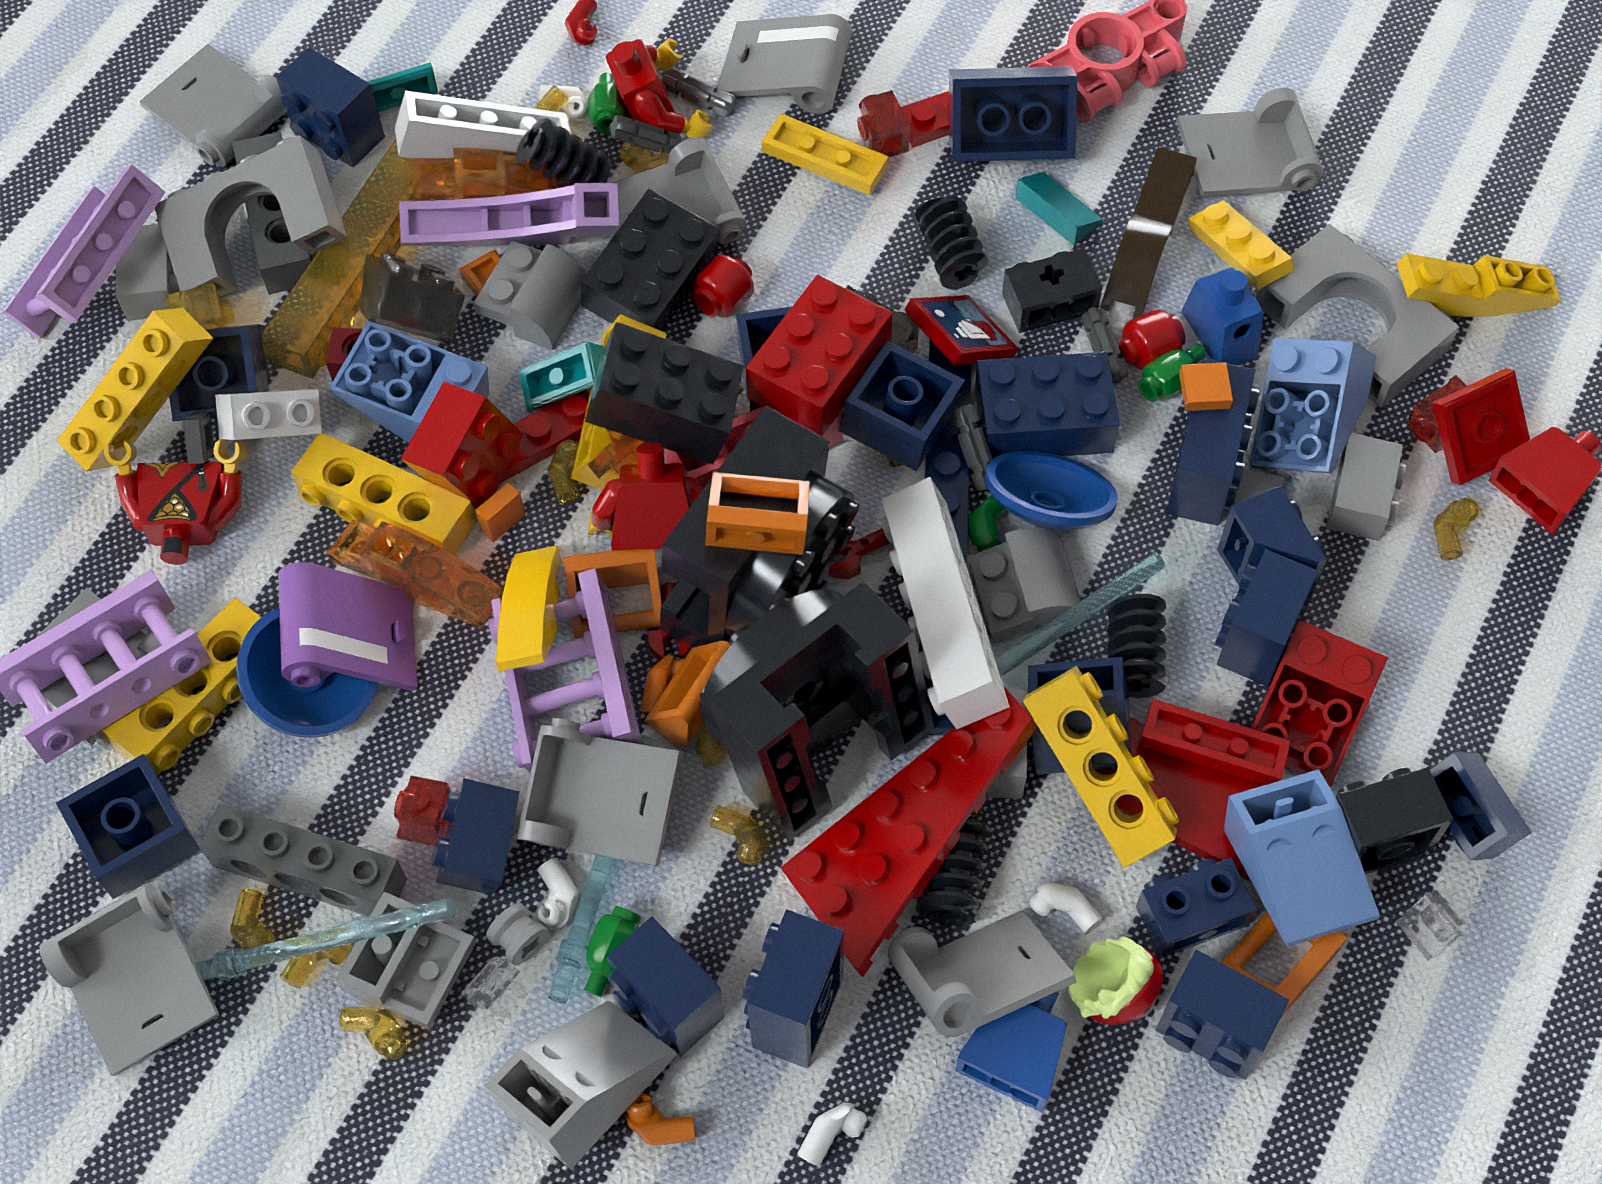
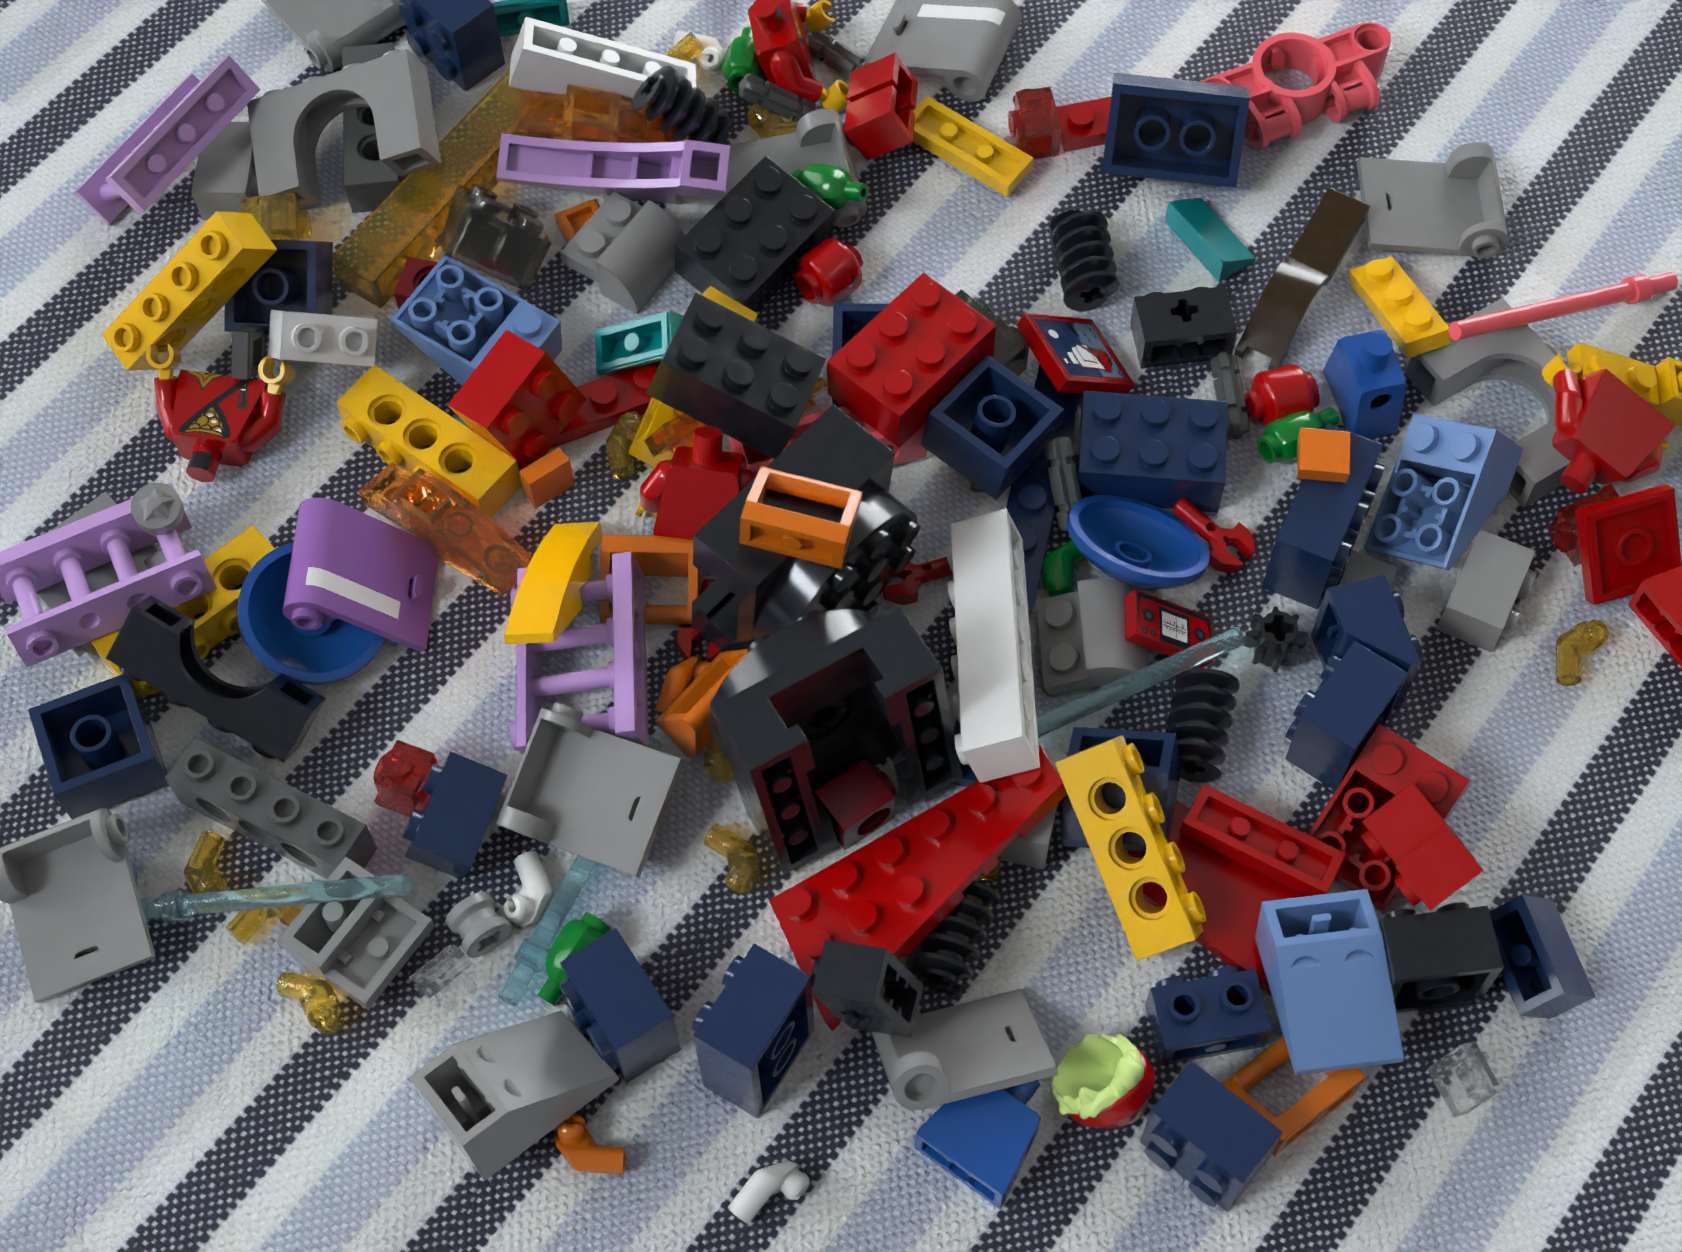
camera: 10 degrees right, 0 degrees up
(144, 596) = (157, 508): none -> light grey tile
(172, 728) = (161, 650): none -> black arch
(712, 205) = (831, 184): none -> green plant
(741, 129) = (880, 107): none -> red piece
(845, 764) = (857, 802): none -> dark red brick
(893, 933) = (867, 988): none -> black brick
(1067, 899) = (1070, 984): white arm -> none
(1088, 560) = (1163, 624): none -> tile
(1119, 475) = (1217, 537): none -> red bar
(1189, 558) = (1287, 643): none -> black gear
(1360, 723) = (1422, 846): none -> red brick
(1437, 201) = (1631, 291): none -> coral bar
(1441, 325) = (1603, 427): none -> red torso

